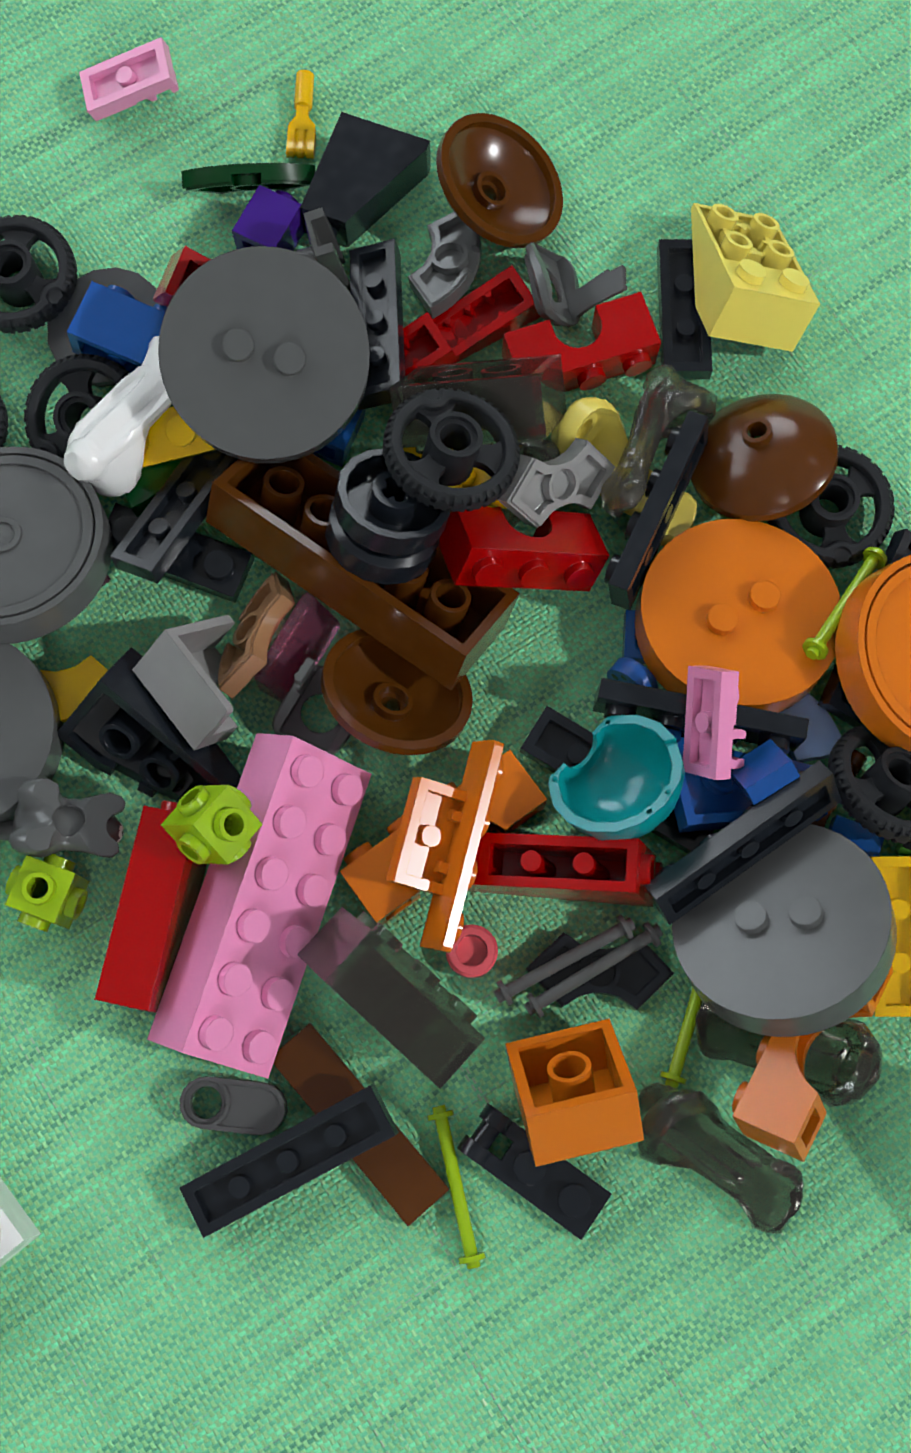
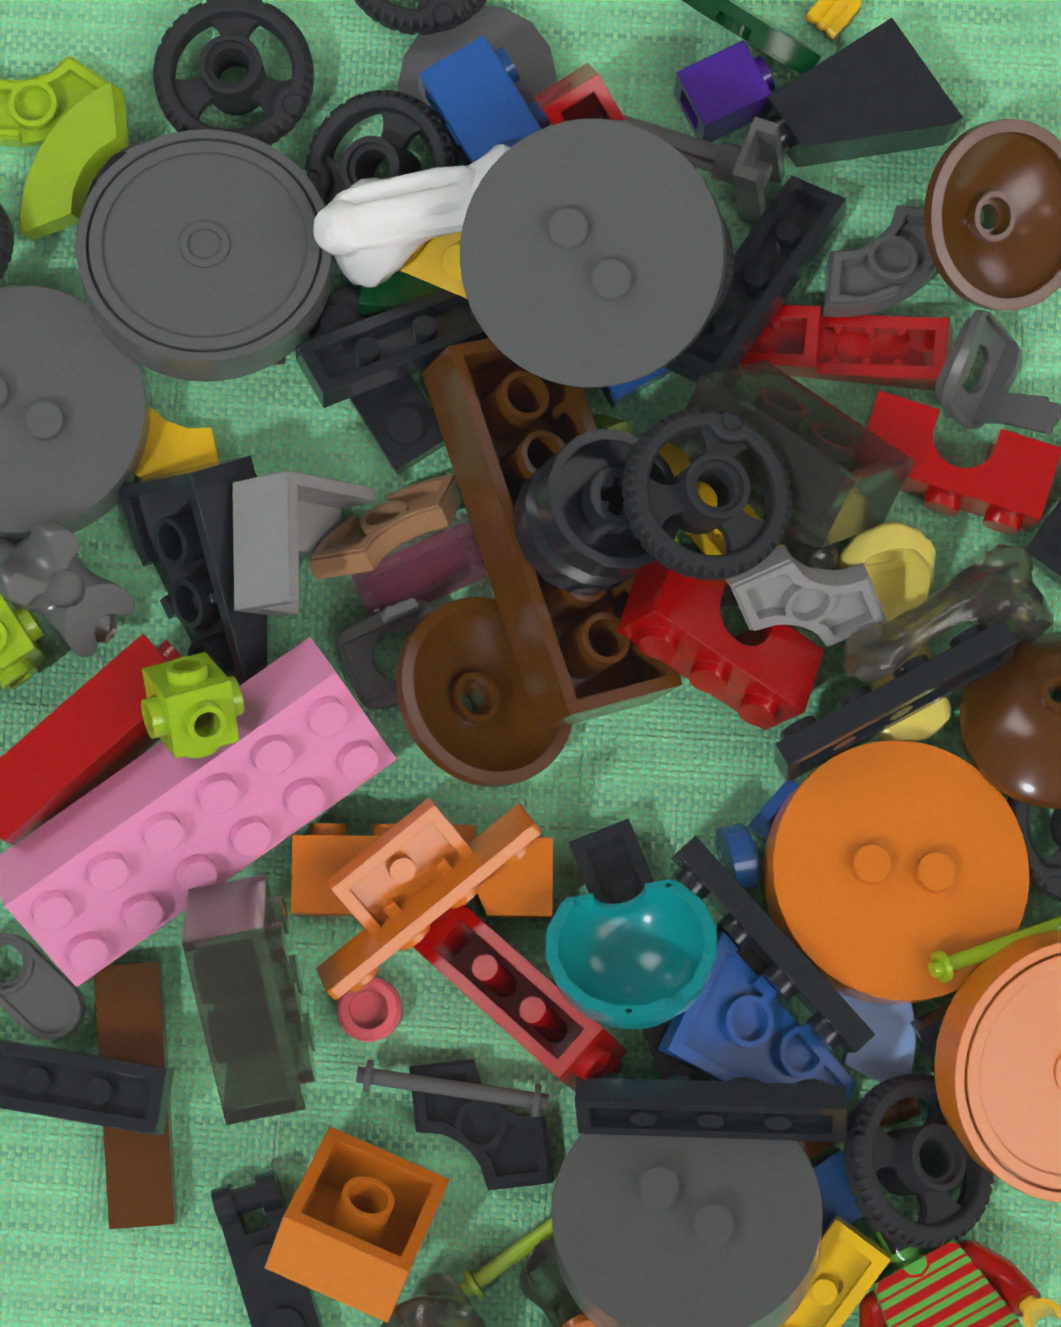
camera: 40 degrees right, 5 degrees up
(471, 1255) = (149, 1303): lime axle -> none
(650, 934) = (475, 1119): dark grey axle -> none
(711, 722) = (765, 966): bright pink plate -> none
(764, 772) = (783, 1053): blue tile -> none

